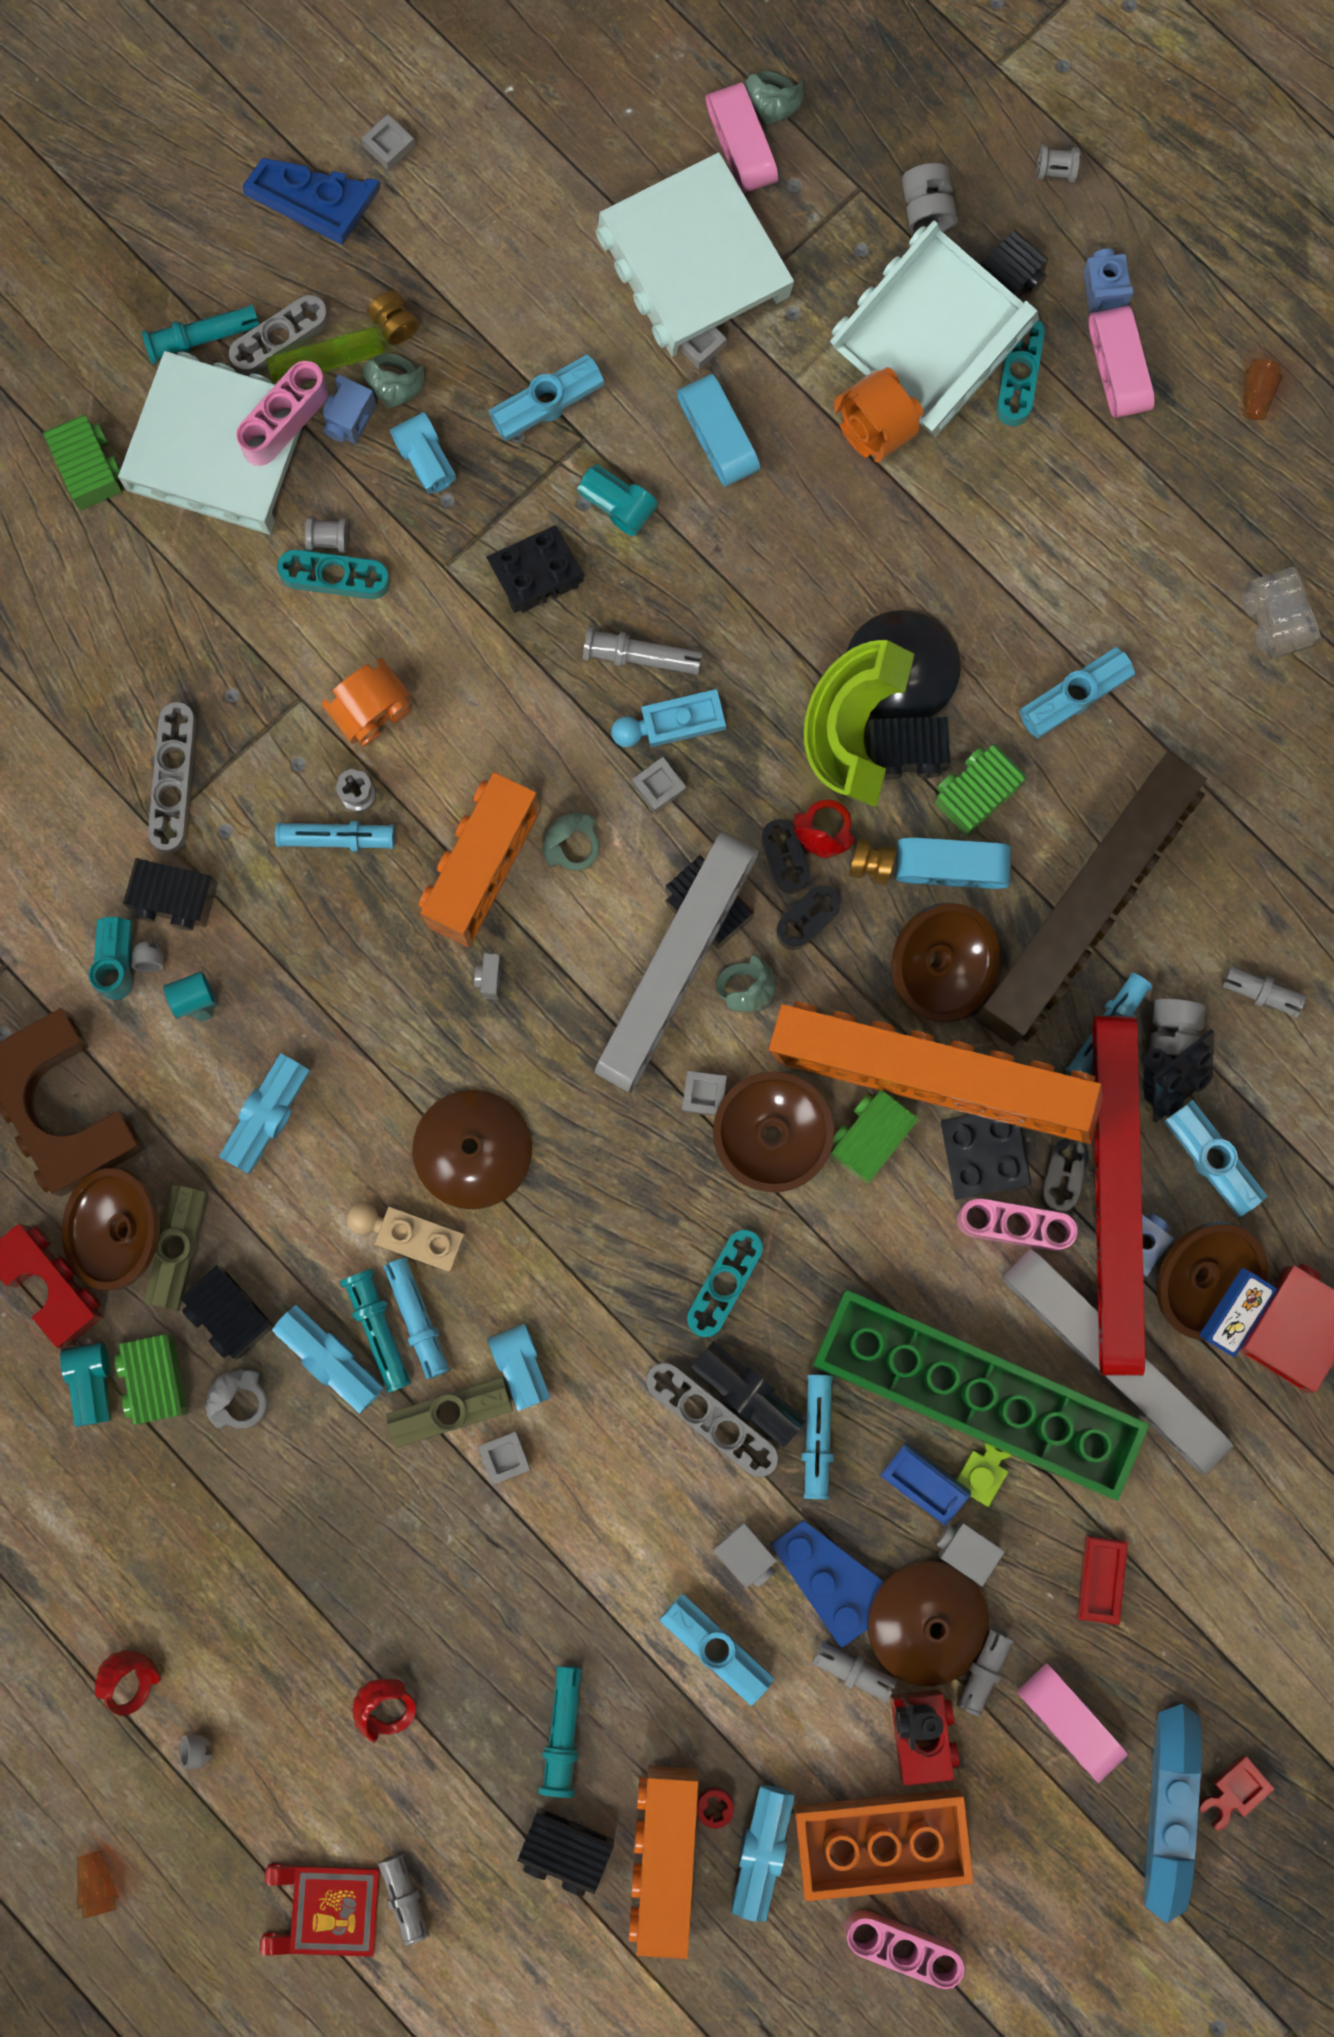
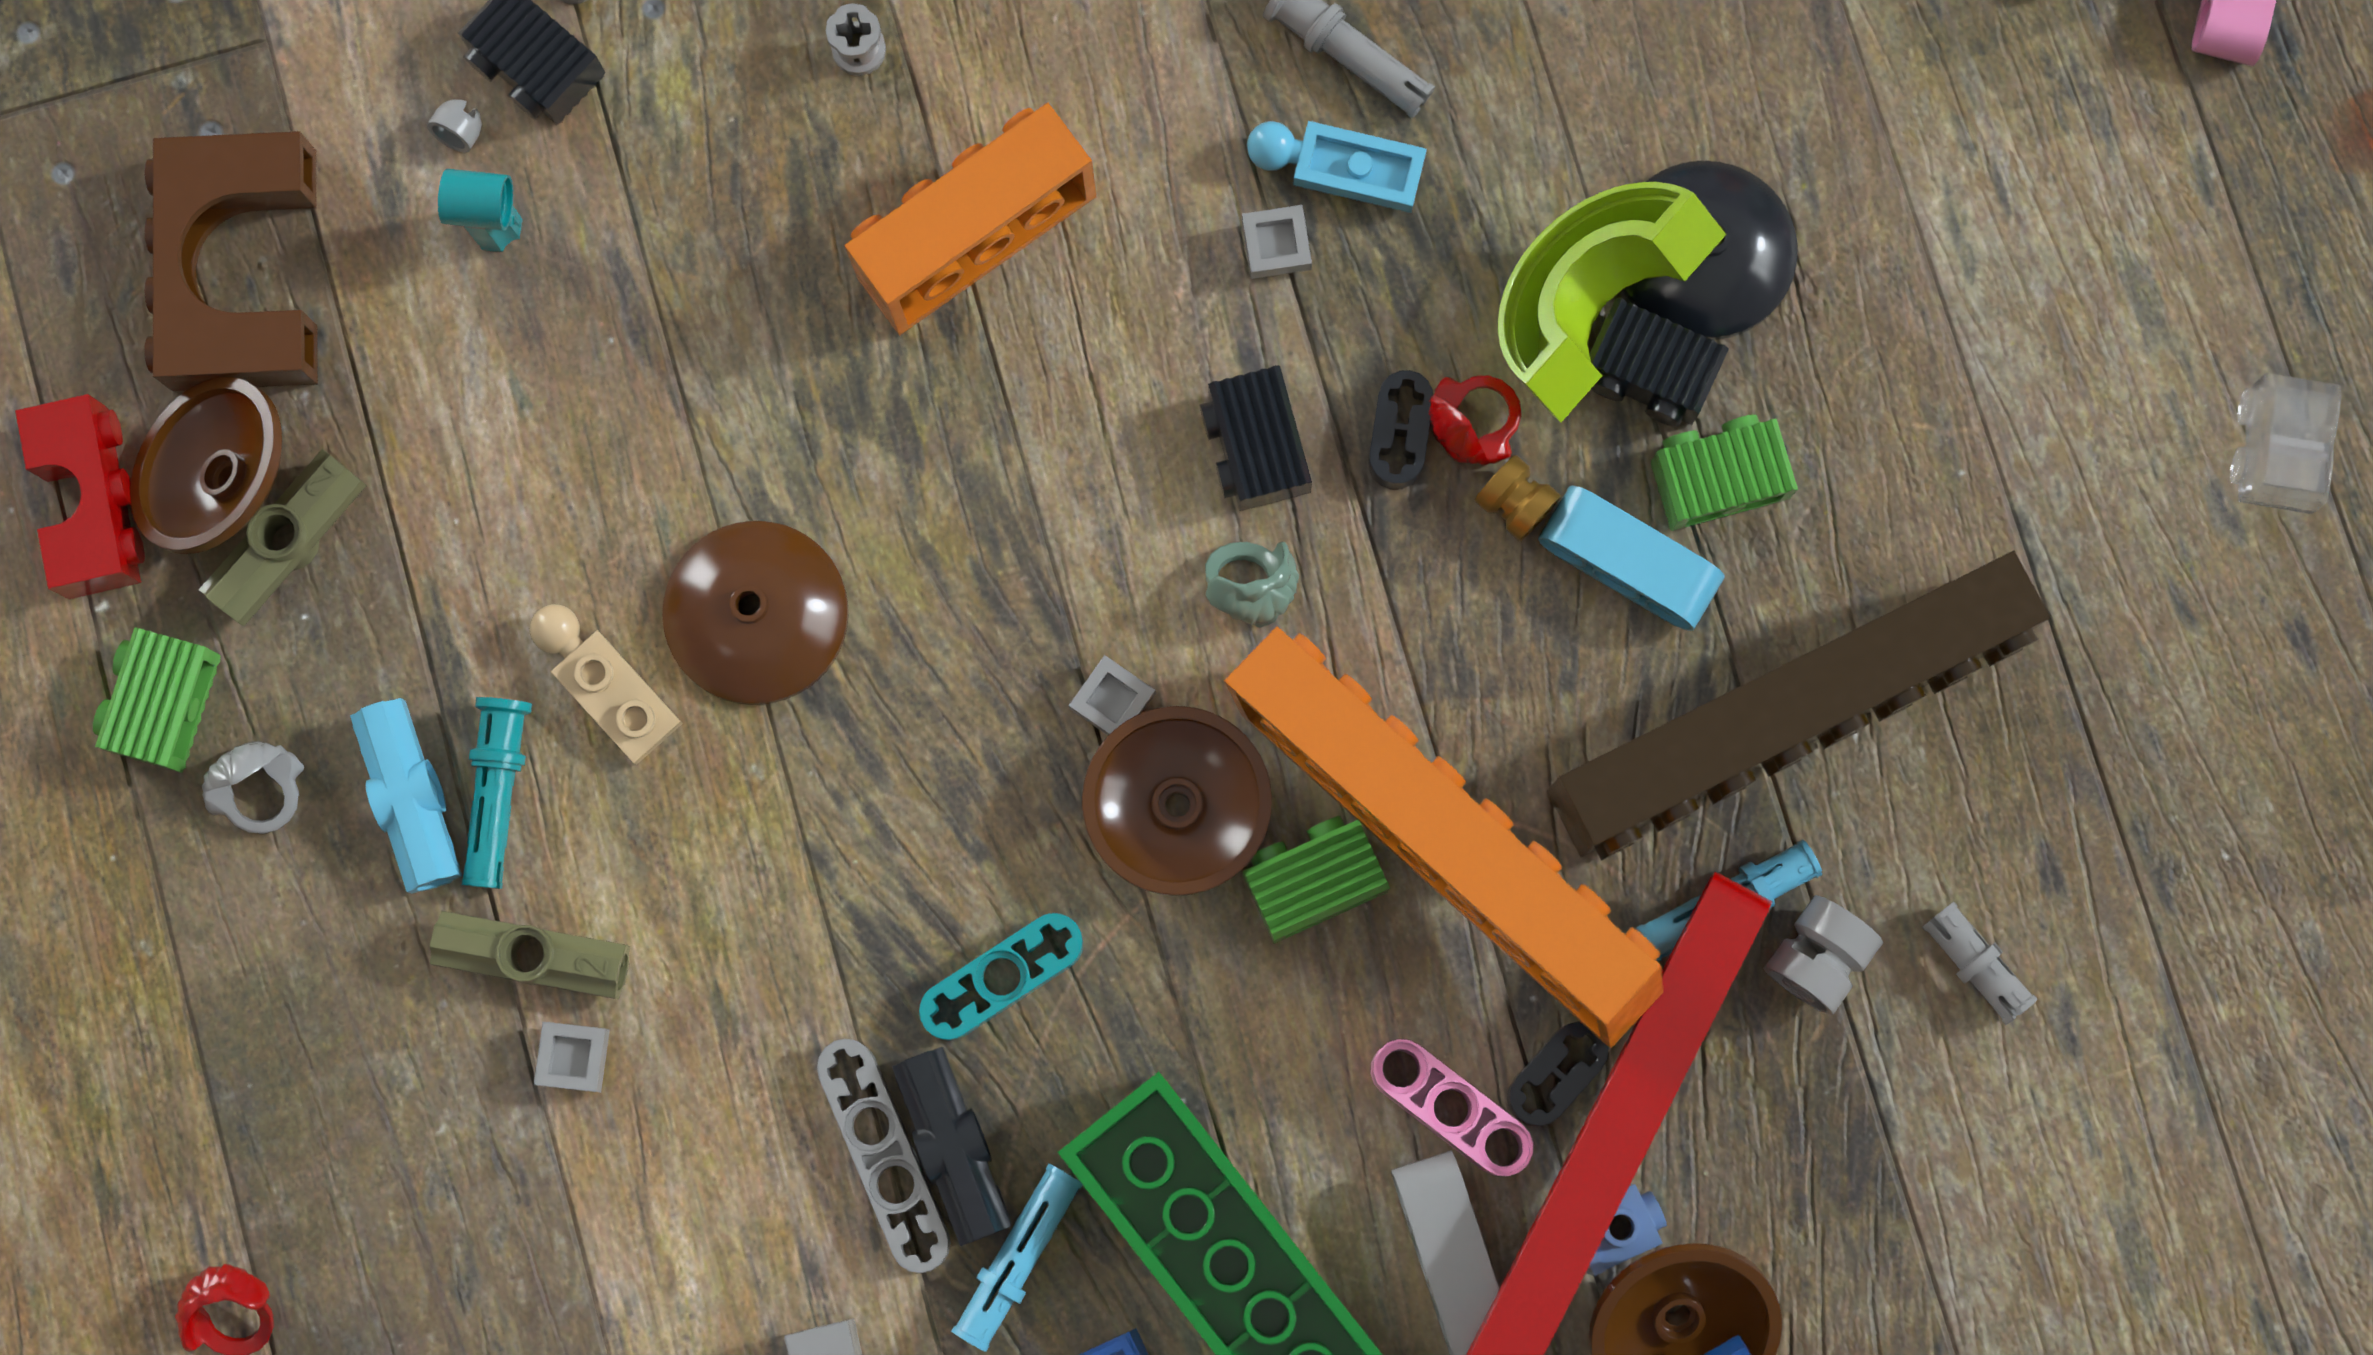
camera: 30 degrees right, 0 degrees up
(86, 1373) = (73, 645): teal piece -> none
(111, 954) = (407, 96): teal piece -> none
(226, 1313) = (301, 661): black brick -> none
(265, 1113) = (498, 418): medium azure piece -> none
(341, 835) = (819, 107): medium azure pin -> none
(413, 1310) = (553, 815): medium azure pin -> none
(488, 976) = (902, 386): light grey plate -> none
(517, 1357) = (660, 925): medium azure piece -> none
(560, 830) = (1107, 233): sand green piece -> none
(676, 961) = (1167, 494): light grey beam -> none
(802, 910) = (1383, 516): black beam -> none
(963, 965) = (1564, 714): reddish brown dish -> none
(984, 1156) = (1457, 989): black hinge -> none
(1094, 679) = (1969, 403): medium azure piece -> none
(1172, 1081) = (1788, 1022): black hinge -> none
(1232, 1179) = (1793, 1205): medium azure piece -> none

